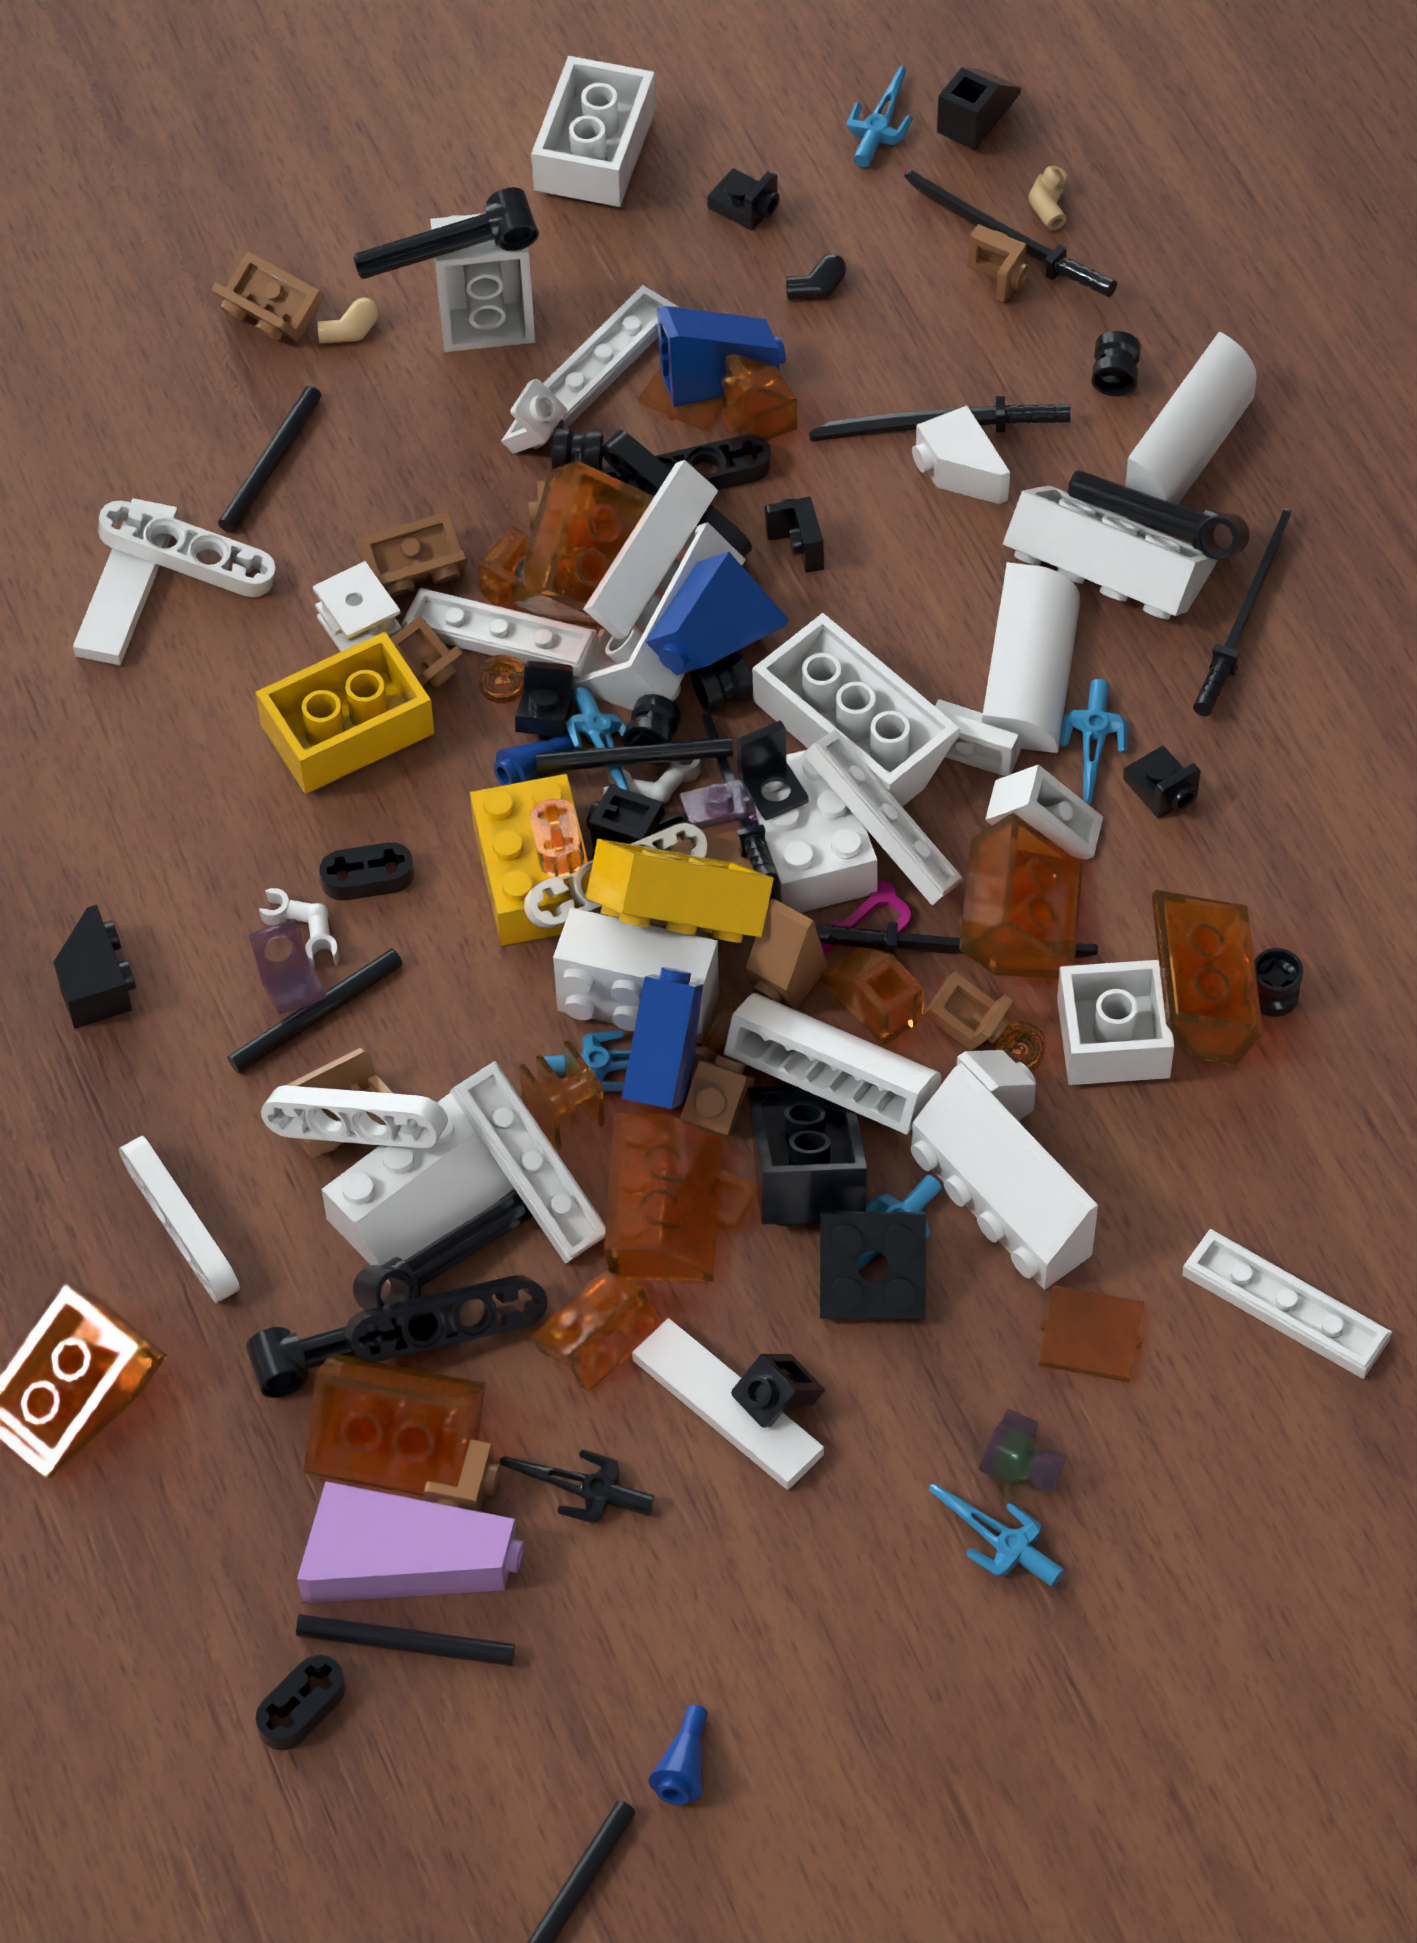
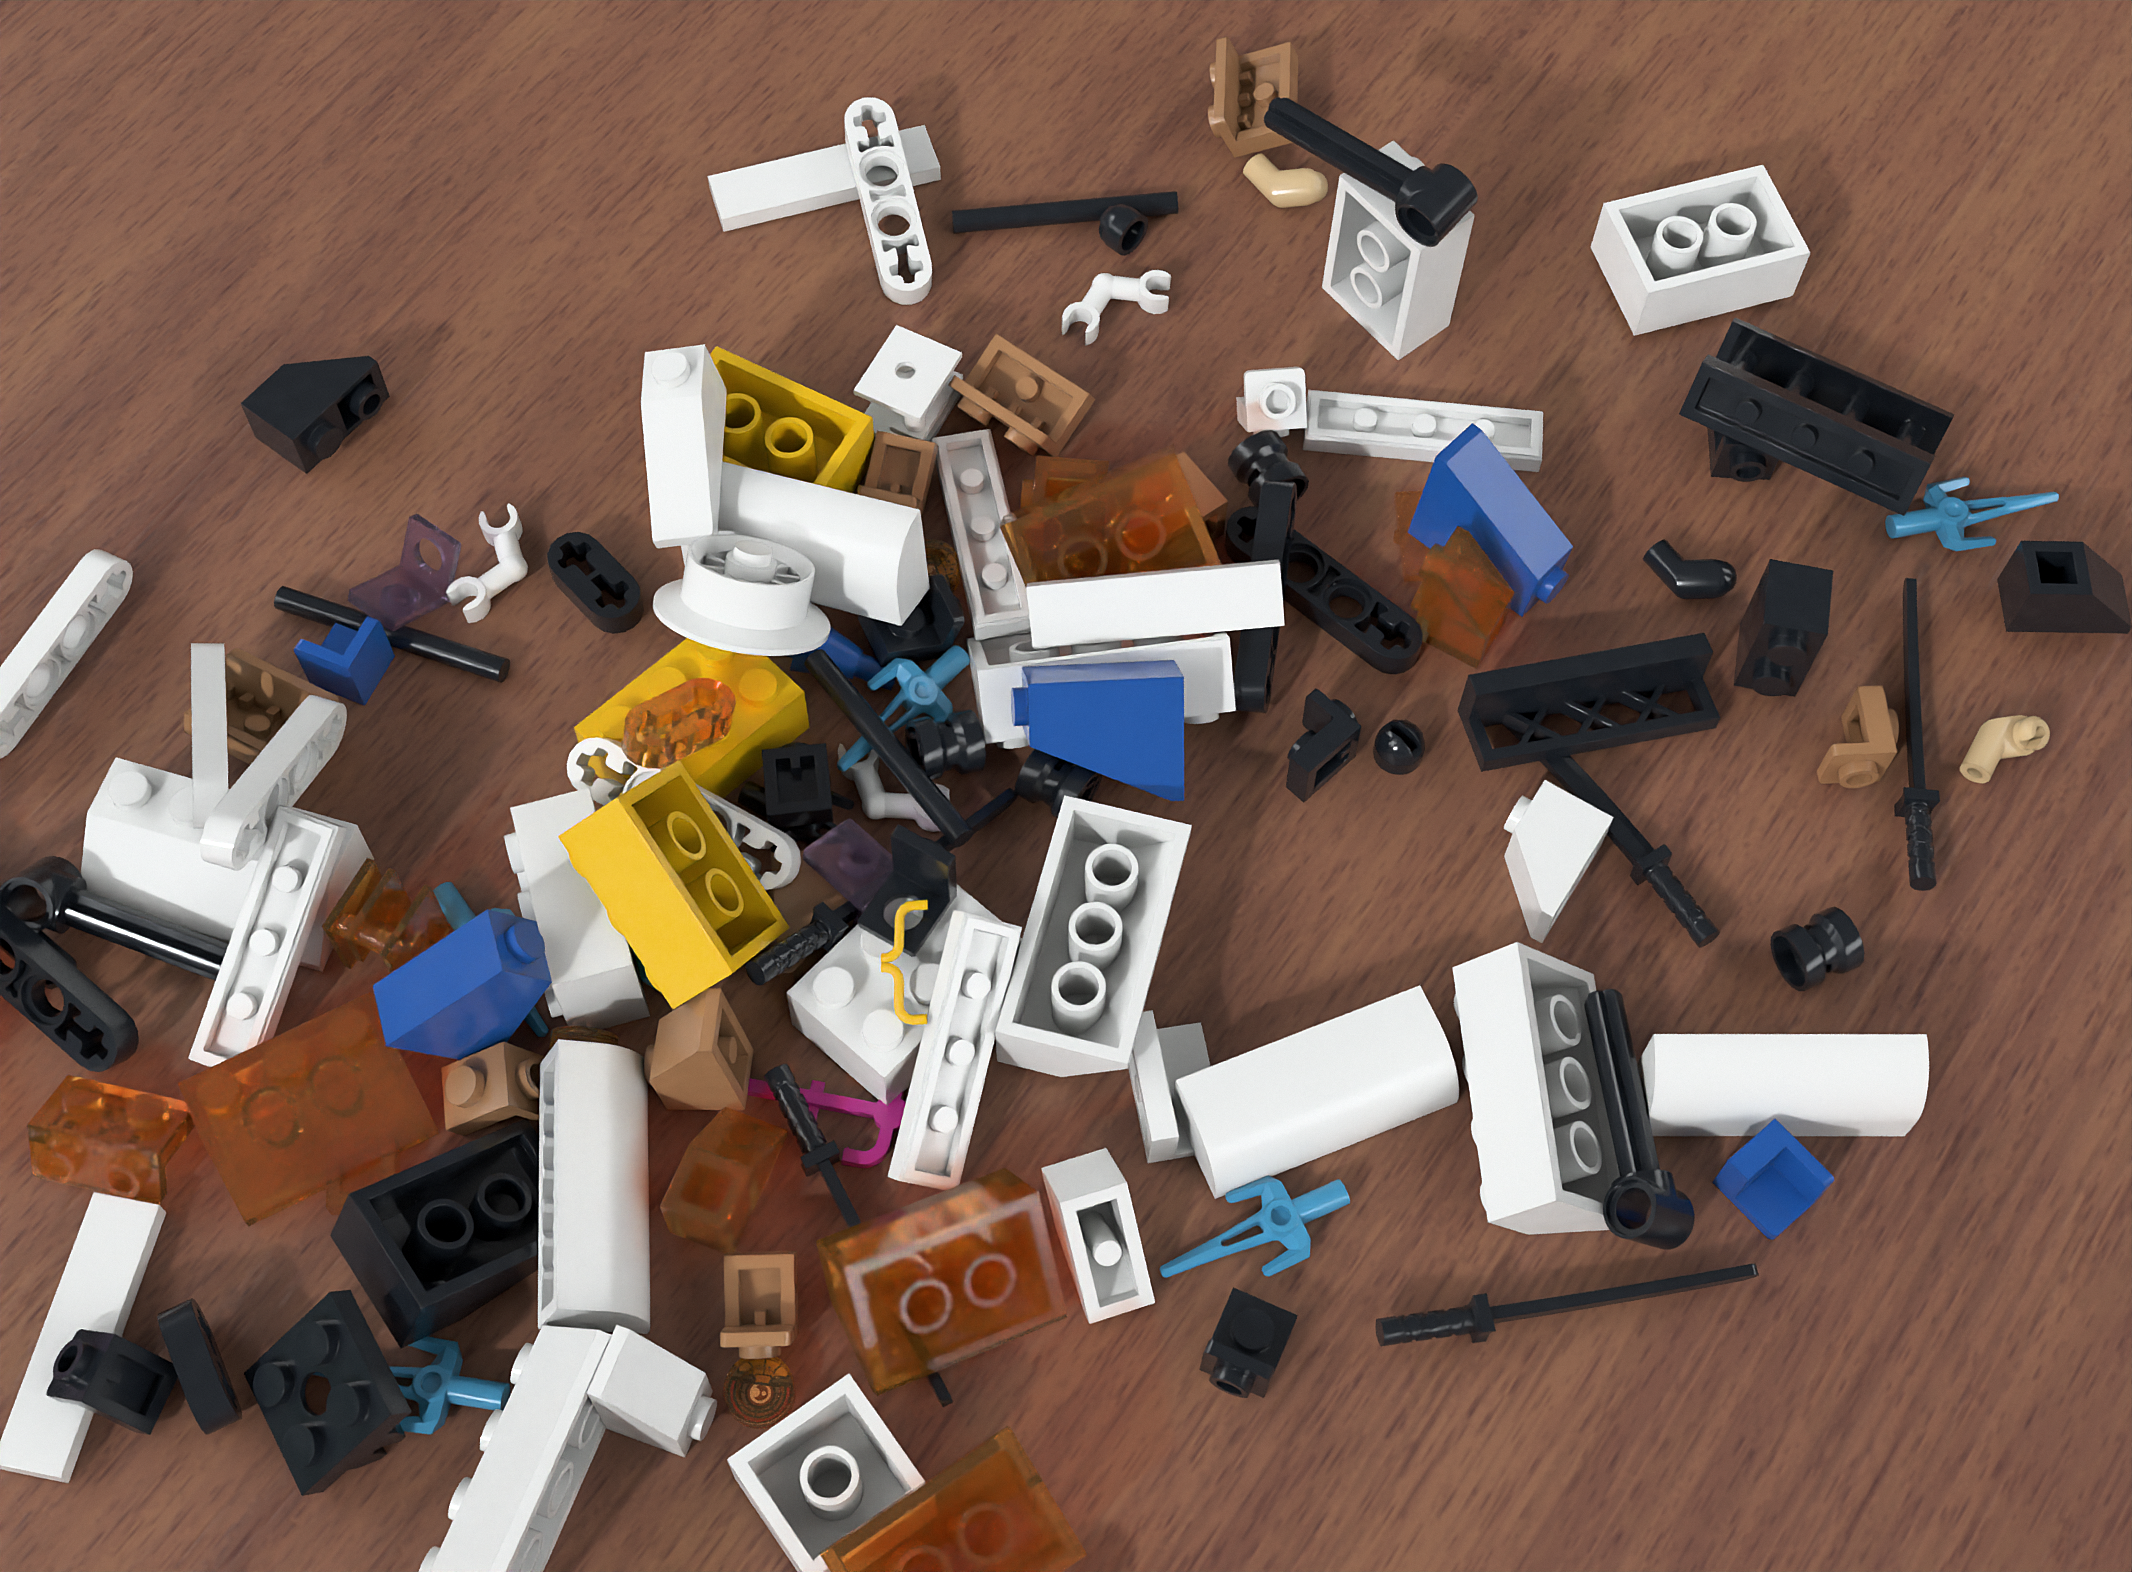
camera: 55 degrees right, 5 degrees up
(312, 431) = (1122, 228): none -> black hinge
(323, 1037) = (348, 660): none -> blue panel
(341, 735) = (683, 443): none -> white slope
(355, 465) = (1115, 287): none -> white arm
(407, 1074) = (273, 779): none -> white beam
(449, 719) = (862, 548): none -> white brick
(482, 762) = (744, 598): none -> white piece
(768, 142) = (1817, 415): none -> black fence
(802, 1336) = (199, 1366): none -> black beam
(815, 812) = (899, 934): none -> yellow piece
(826, 495) = (1393, 753): none -> black hinge
(859, 371) = (1583, 682): none -> black fence
(903, 249) = (1783, 628): none -> black brick
(1240, 469) = (1773, 1179): none -> blue panel

